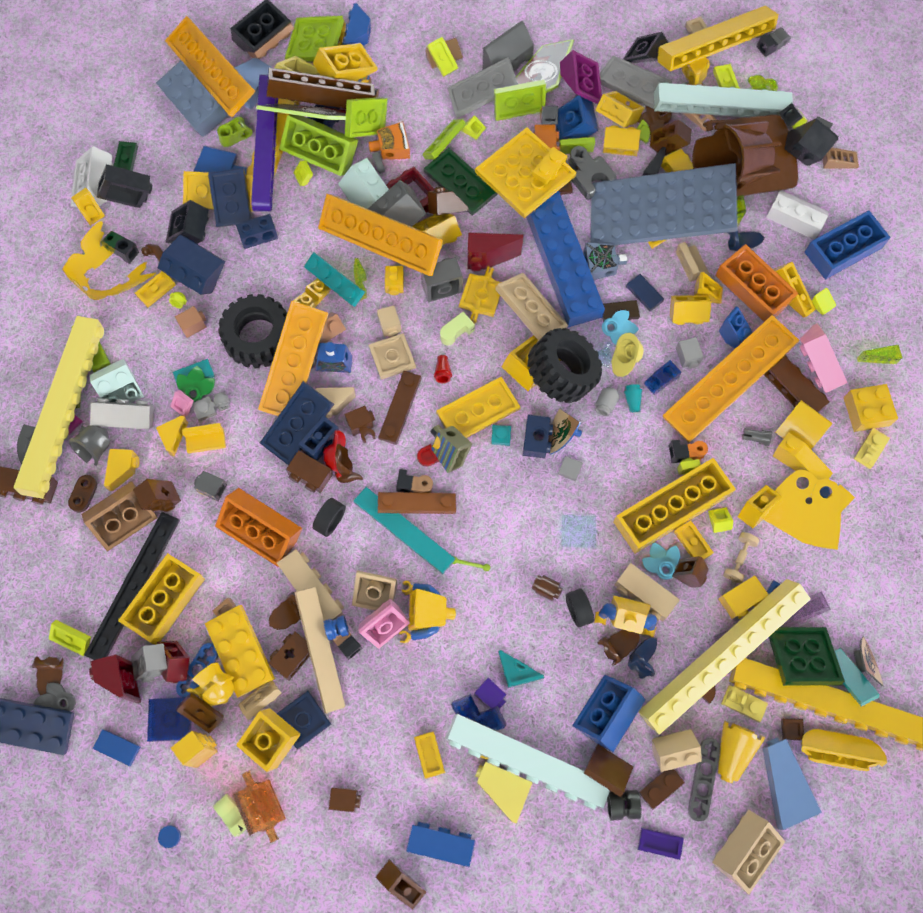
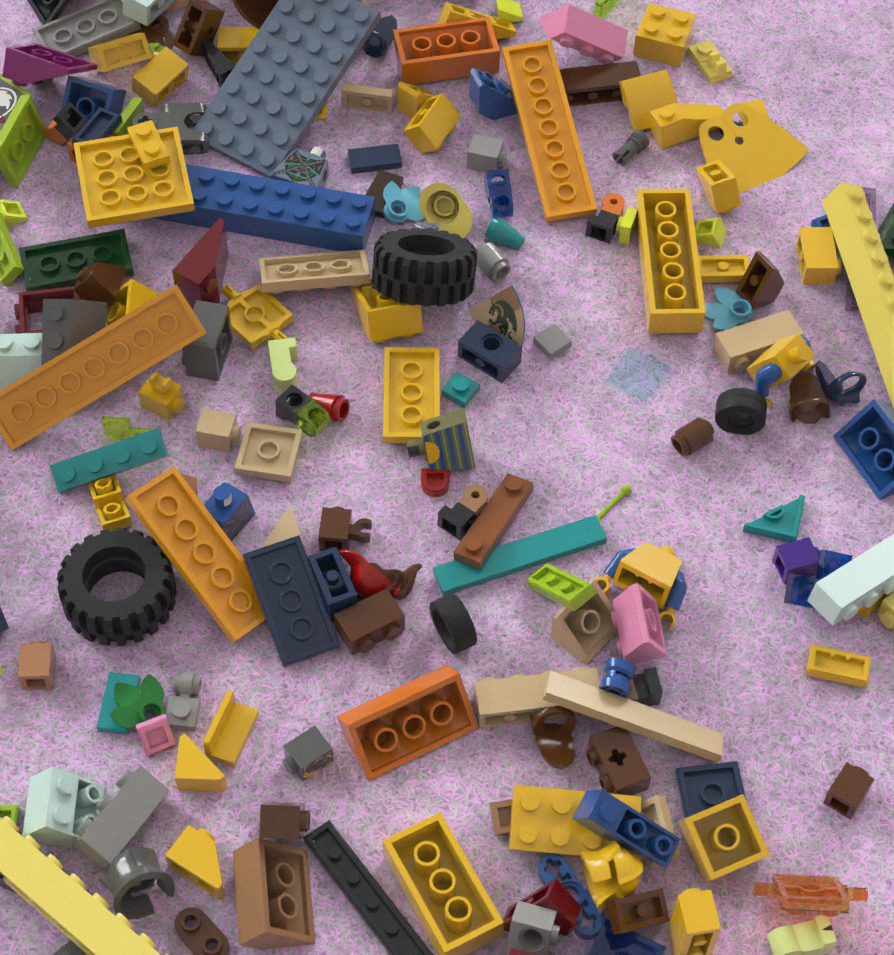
camera: 60 degrees left, 15 degrees down
(241, 680) = (630, 829): none -> blue slope
(384, 564) = (561, 587): none -> lime tile
(400, 407) = (347, 478): reddish brown plate -> none
(428, 357) = (302, 411): none -> leg
(554, 133) = (99, 126): none -> dark blue tile
(749, 540) = (752, 216): tan wheel -> none

